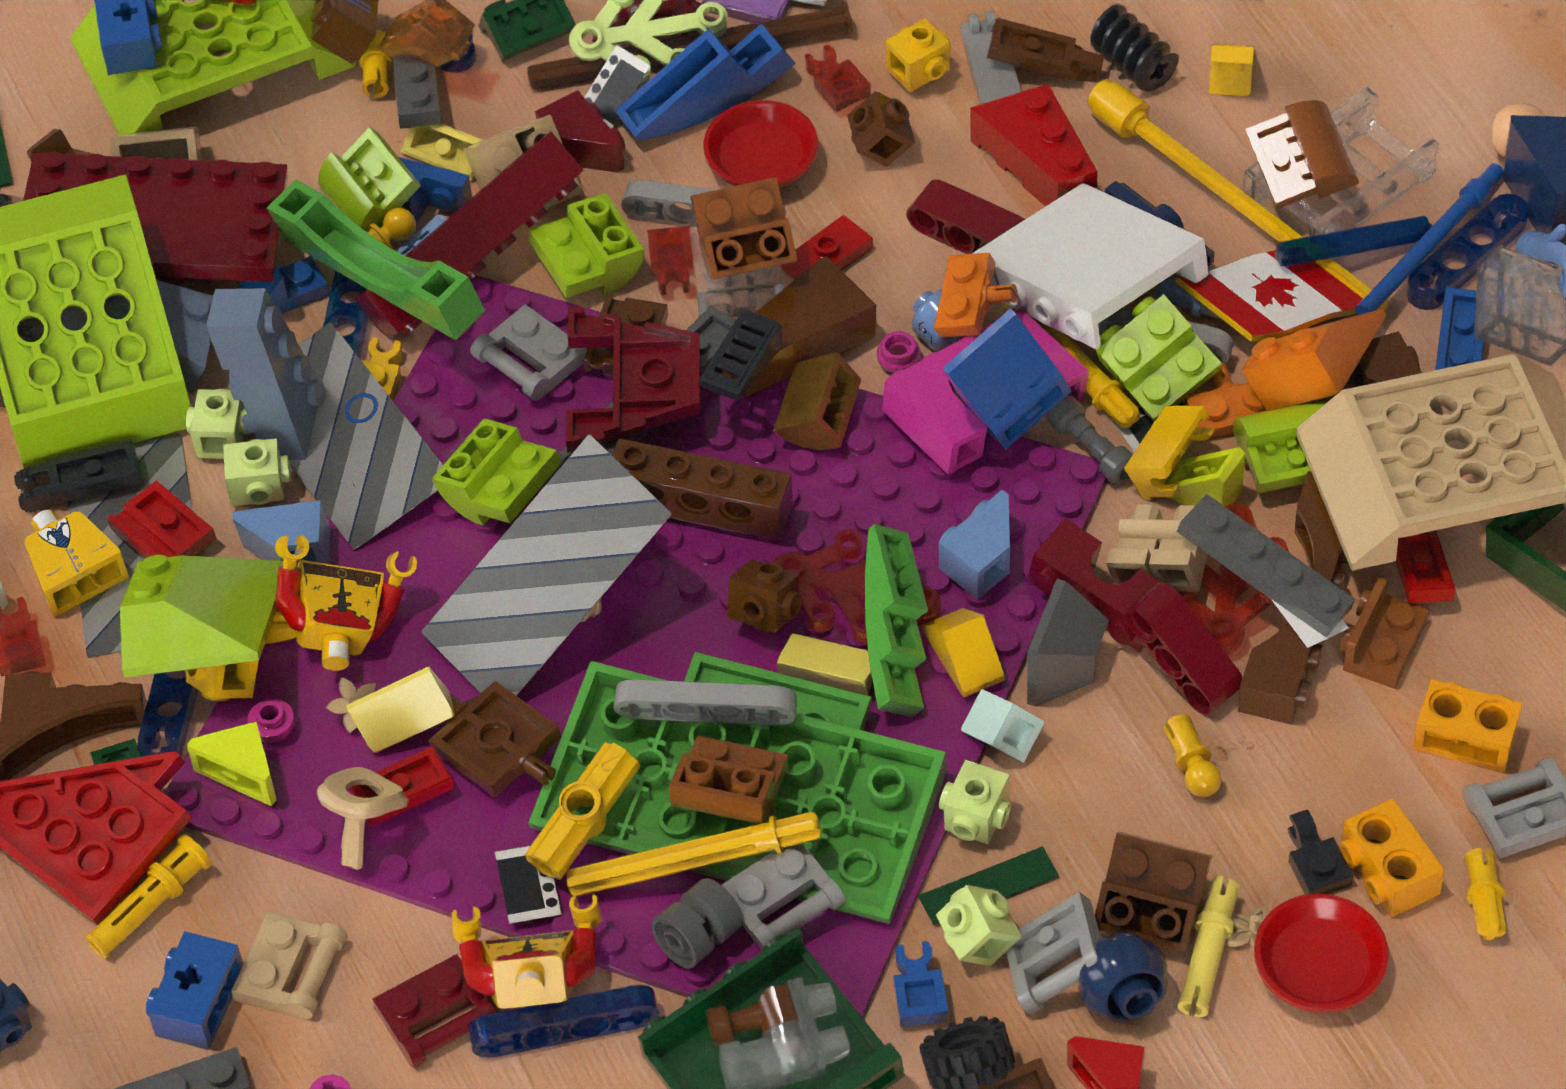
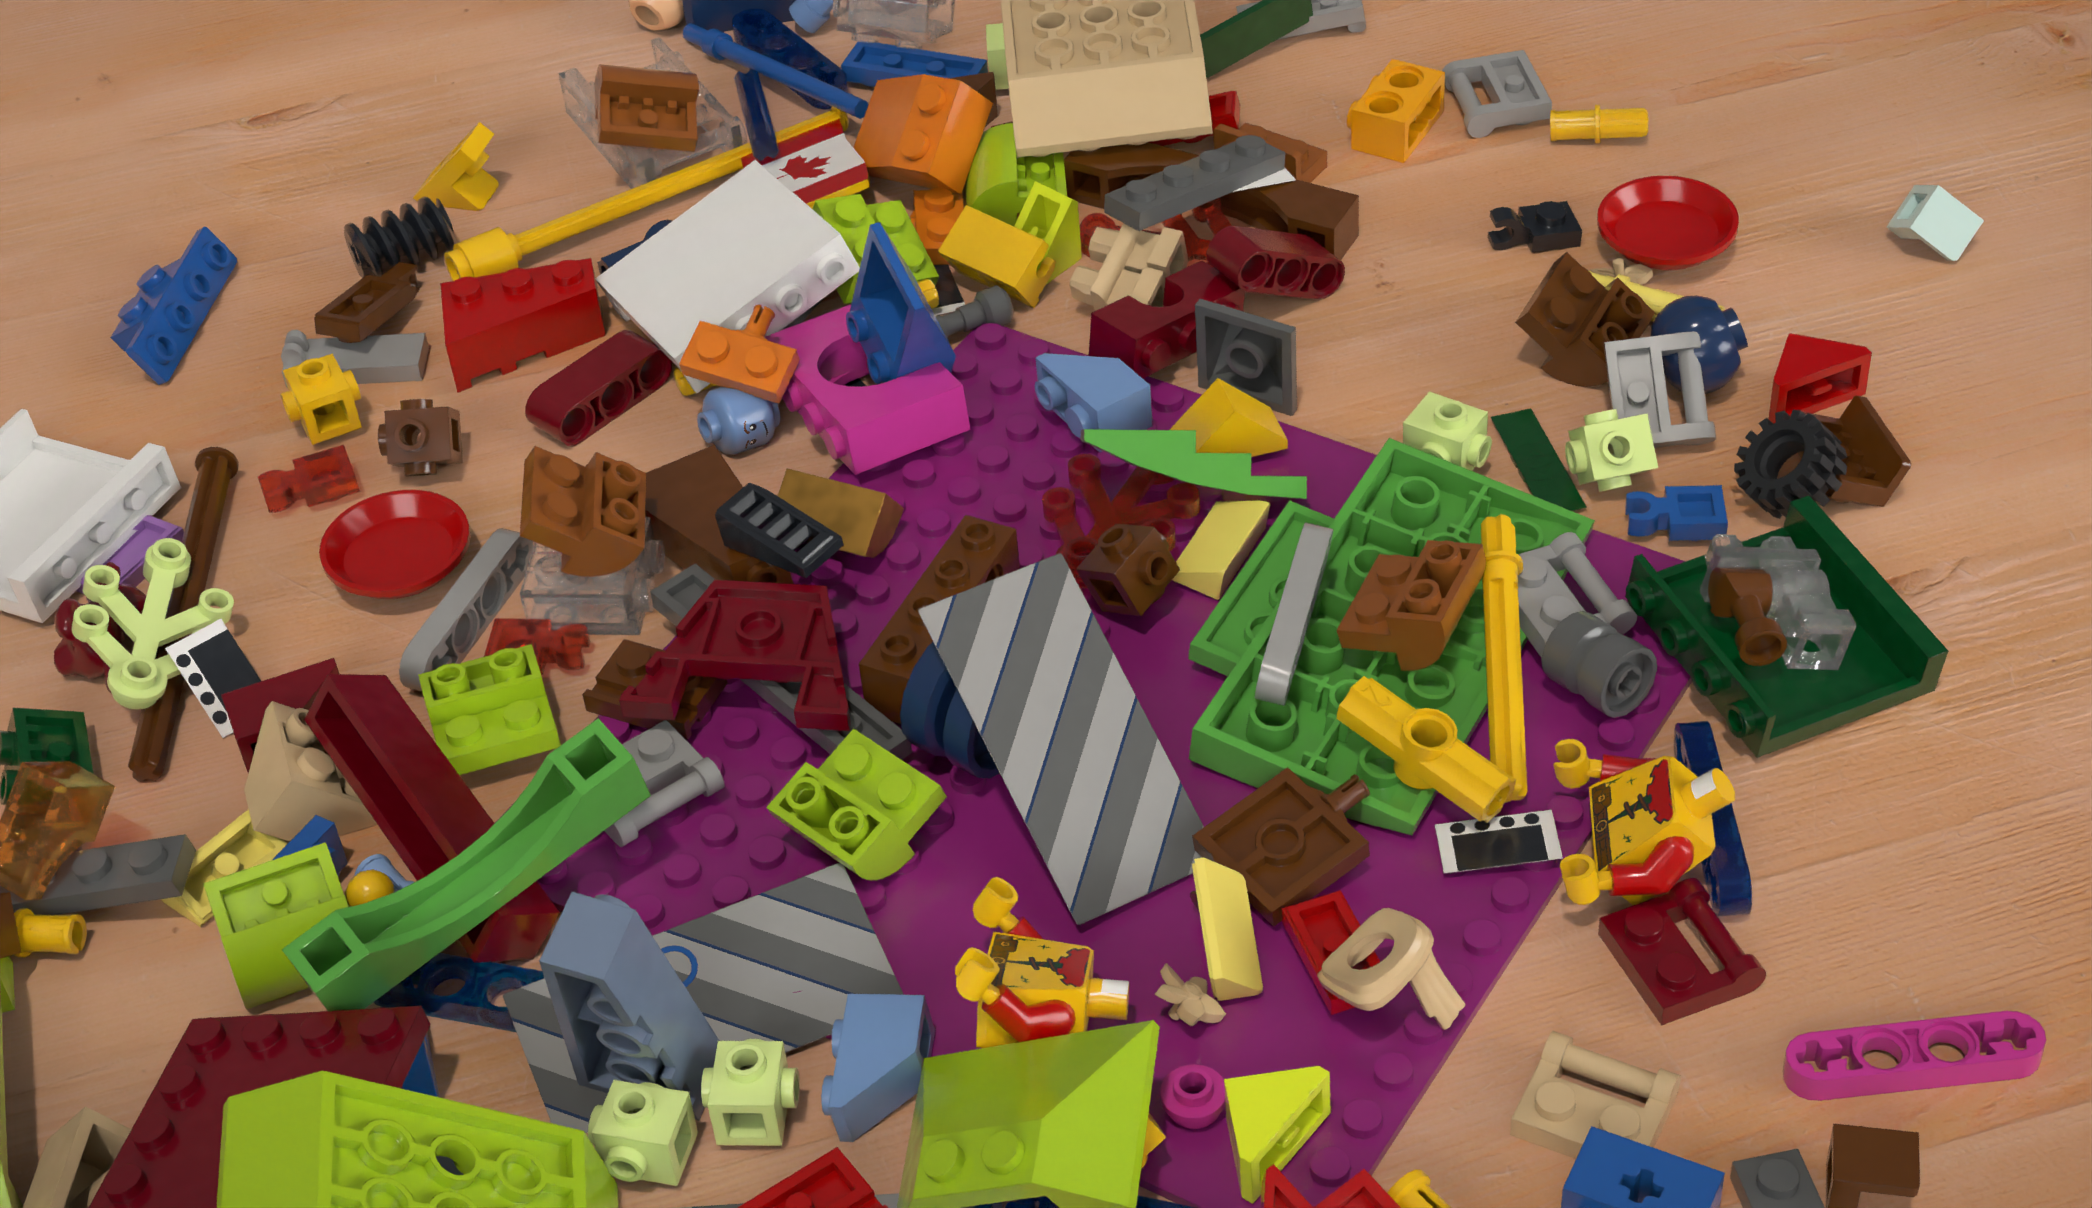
camera: 80 degrees left, 10 degrees down
(704, 83) = (264, 585): blue slope -> none
(898, 351) = (764, 462): dark pink plate -> none
(1002, 725) = (1335, 416): light aqua panel -> none
(1192, 756) = (1427, 287): yellow pin -> none
(1399, 854) = (1553, 168): light orange brick -> none

